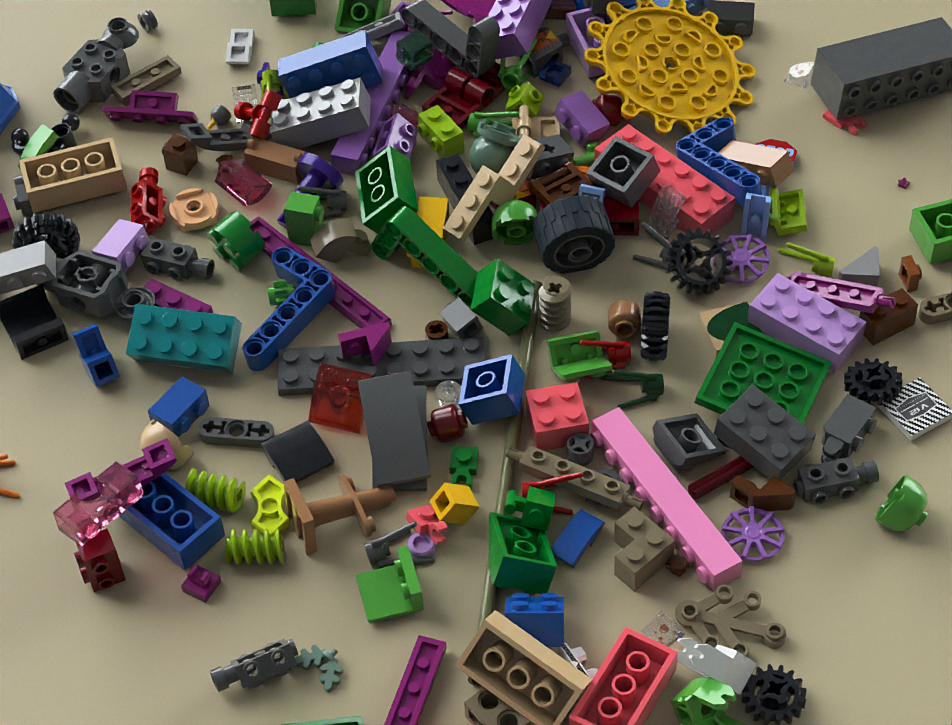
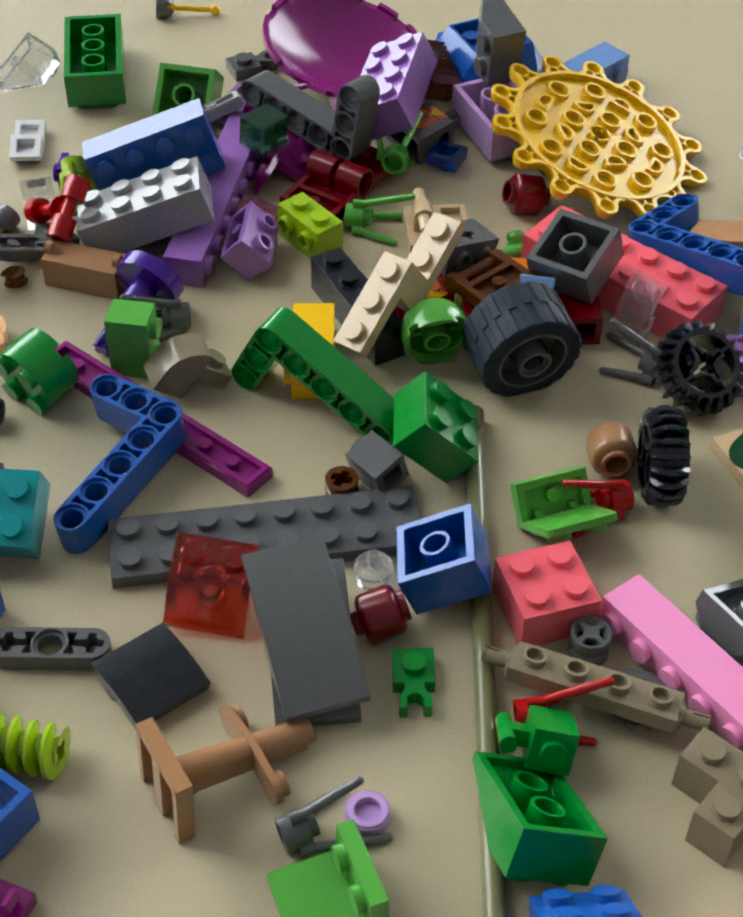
camera: 10 degrees left, 5 degrees down
(242, 182) = (40, 298): clear pink brick -> none
(254, 547) = (91, 838): lime piece -> none
(270, 498) = (114, 784): neon yellow tile -> none
(279, 292) = (103, 438): bright green gear -> none
(370, 339) = (246, 496): magenta slope -> none
(385, 187) = (243, 293): green brick -> none
(427, 523) = (379, 775): coral plate -> none
(454, 503) = (413, 740): yellow brick -> none
(493, 146) = (389, 232): sand green tile -> none
(524, 95) = (416, 177): lime brick -> none
(555, 303) = (512, 432): dark tan piece -> none
(576, 537) = (616, 782): blue slope -> none
(581, 118) = (496, 202): medium lavender brick -> none
(649, 383) = (668, 538): dark green plant -> none
(733, 17) = (661, 86): dark grey brick -> none

